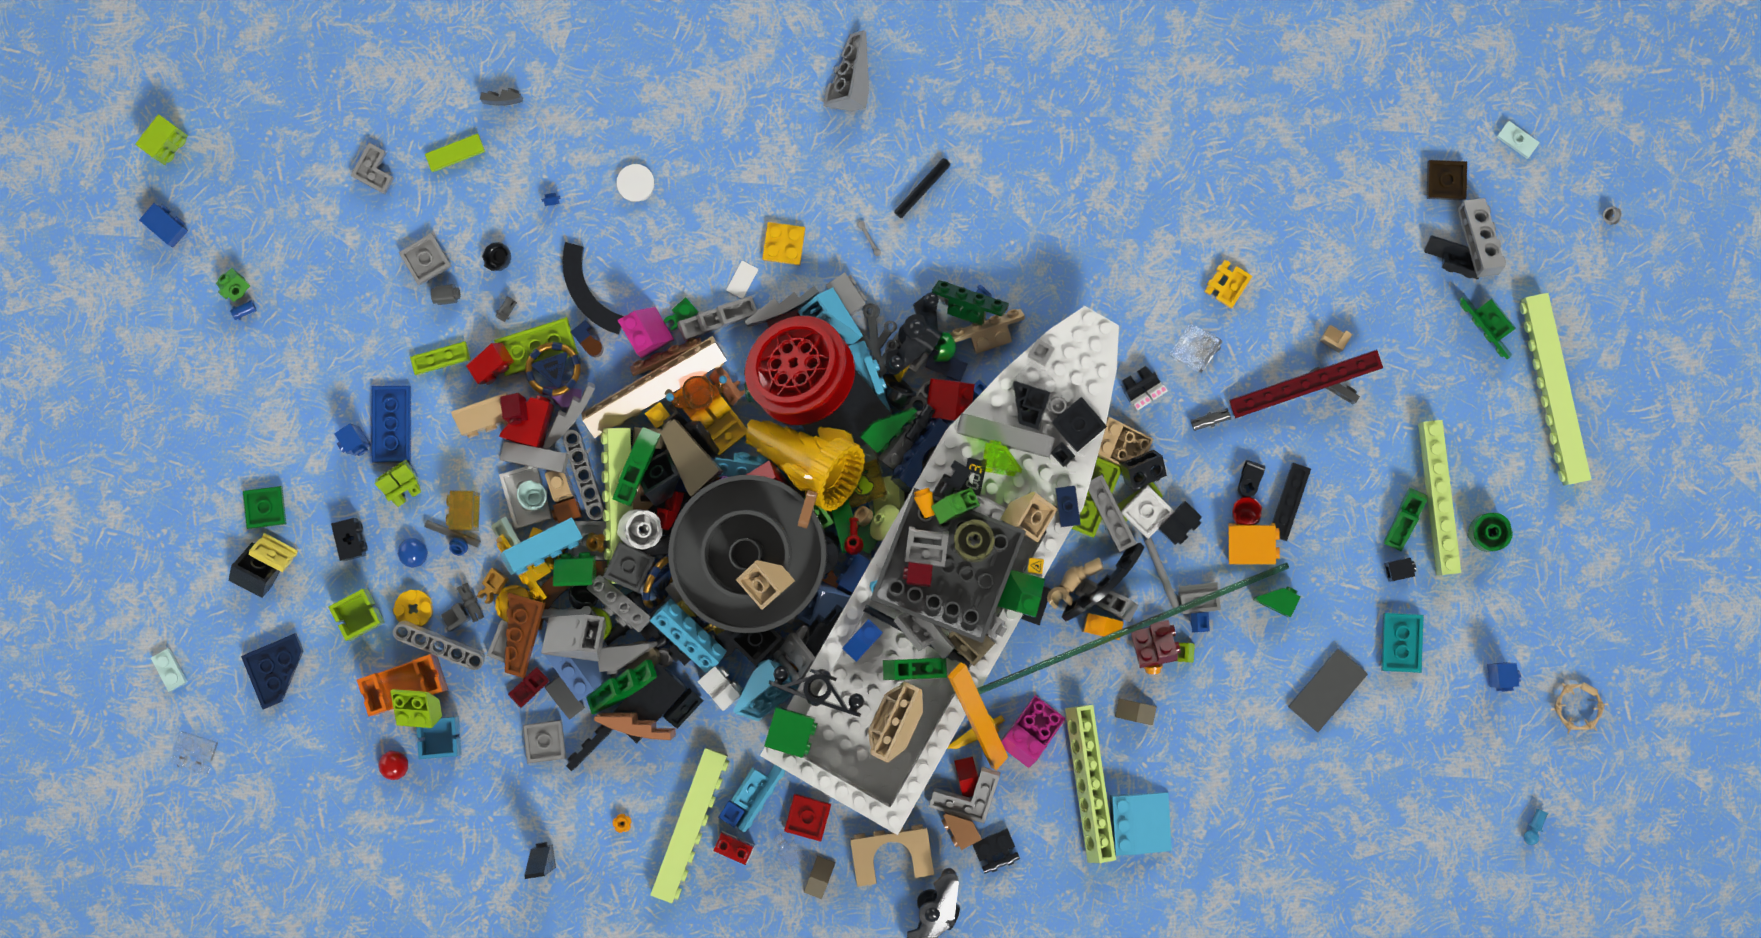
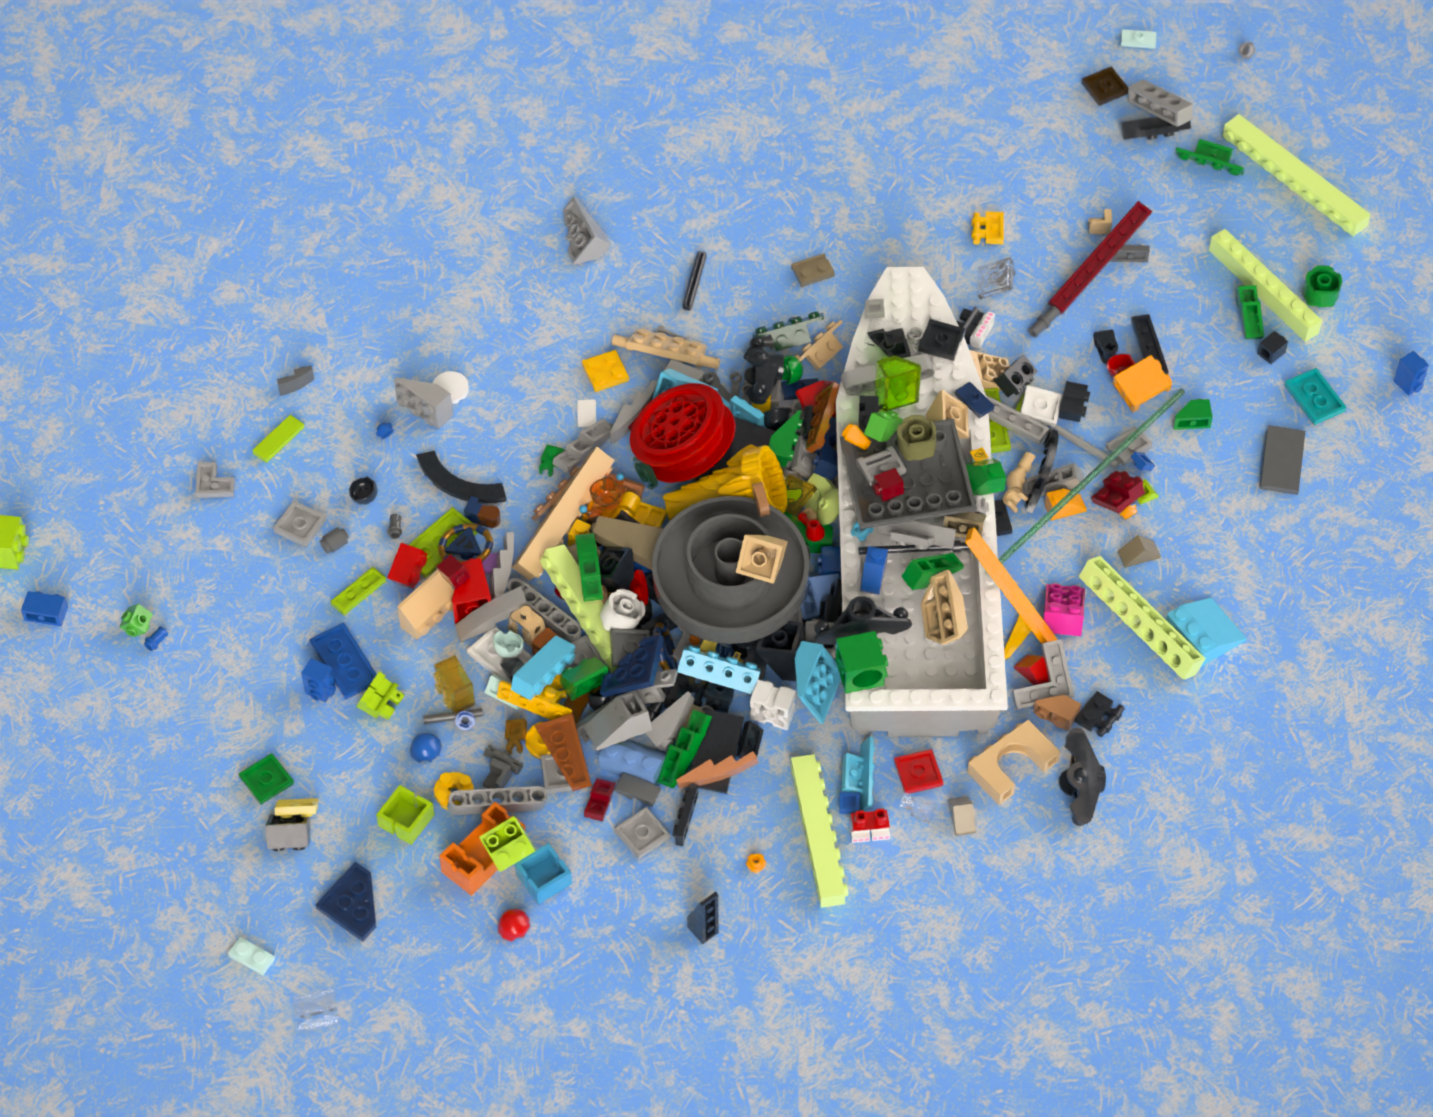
camera: 30 degrees left, 30 degrees down
(342, 531) = (361, 763): black brick -> none
(524, 522) = (511, 667): none -> black slope
(591, 542) = (590, 644): pearl gold plate -> none
(604, 199) = (425, 400): none -> light grey slope
(614, 599) = (635, 669): none -> dark blue plate
(646, 331) = (527, 481): dark pink slope -> none
(850, 253) = (668, 347): none -> tan plate
(927, 433) = (823, 412): none -> dark orange wing
(1037, 237) = (813, 270): none -> dark tan plate
(1062, 454) = (944, 365): black slope -> none

